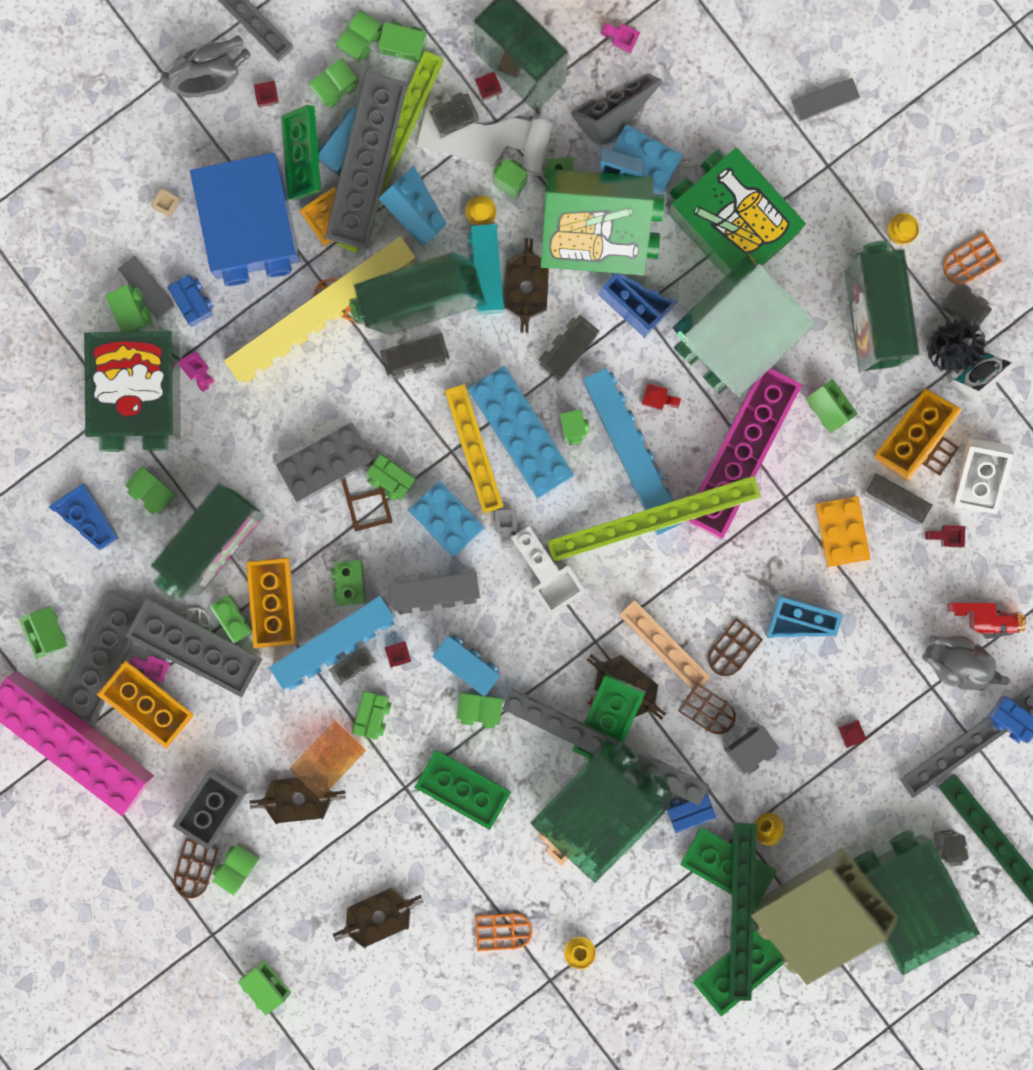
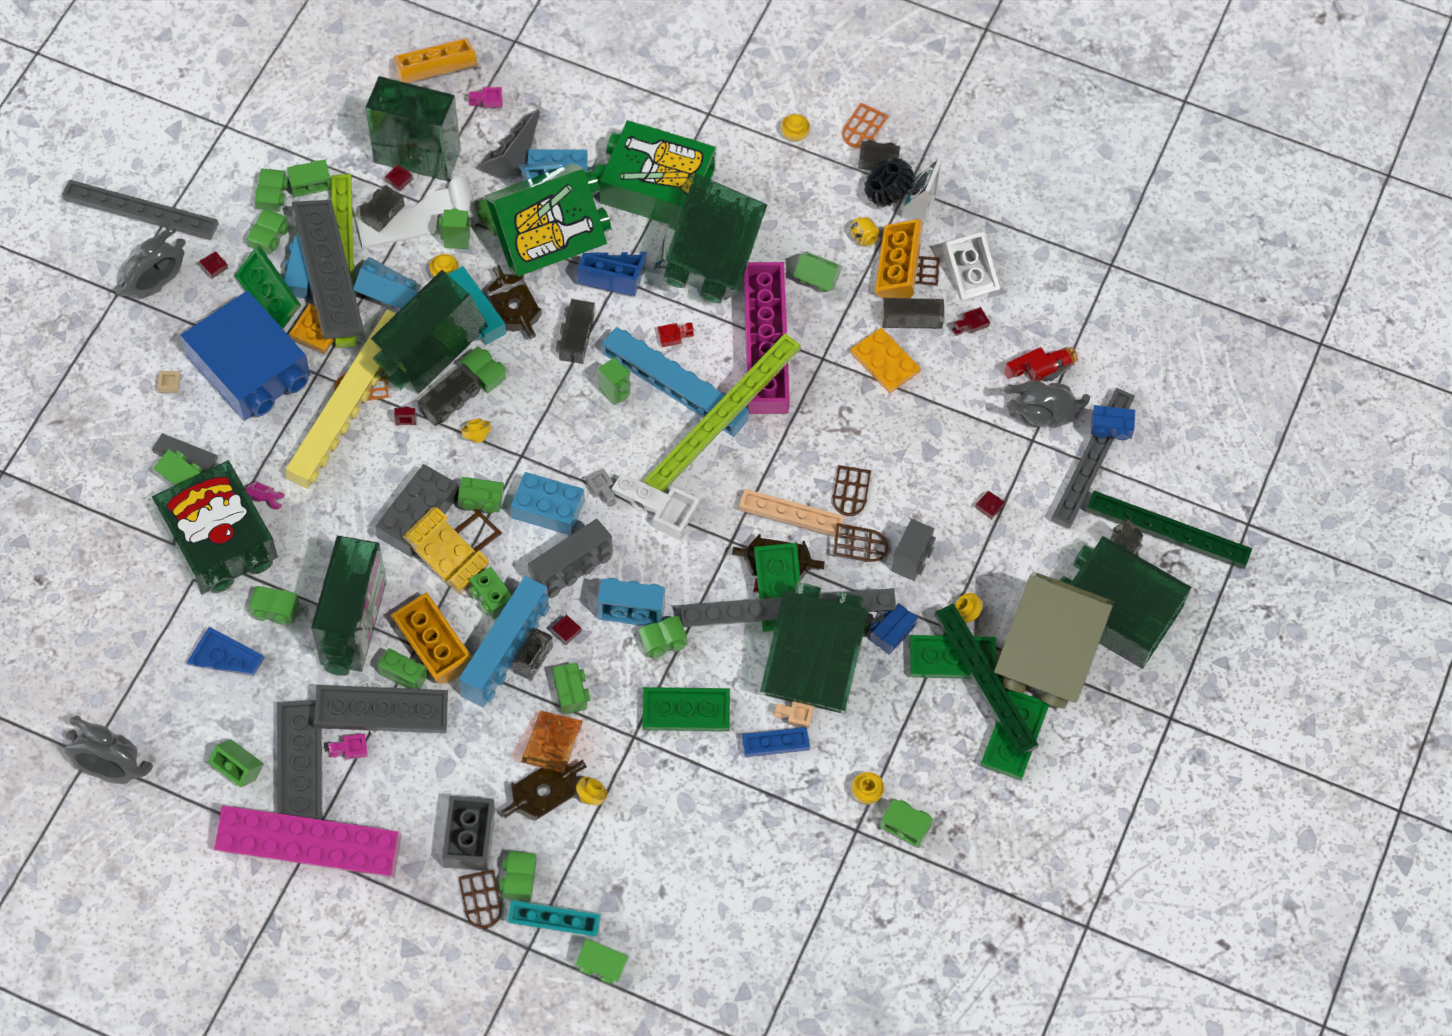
camera: 30 degrees left, 25 degrees down
(145, 704) = (362, 770): light orange brick -> none
(190, 300) = (230, 442): blue brick -> none
(243, 927) = (554, 918): none -> teal brick
(328, 521) = (445, 550): none -> yellow plate
(337, 824) = (591, 791): none -> yellow plate
(360, 922) = (677, 835): dark brown plate -> none
(364, 355) = (405, 416): none -> dark red plate
(421, 406) = (476, 430): none -> yellow plate
(460, 344) = (485, 368): none -> bright green brick
(474, 449) = (540, 441): yellow plate -> none
(496, 937) = (786, 818): orange window -> none
(520, 432) = (573, 409): dark azure brick -> none
(524, 863) = (775, 742): none -> blue plate
(594, 1004) = (906, 822): none -> bright green brick
(801, 618) = (892, 433): dark azure wedge -> none
(826, 99) = (678, 69): dark grey tile -> none
(881, 308) = (813, 177): clear green brick -> none
(902, 382) = (864, 231): none -> yellow head

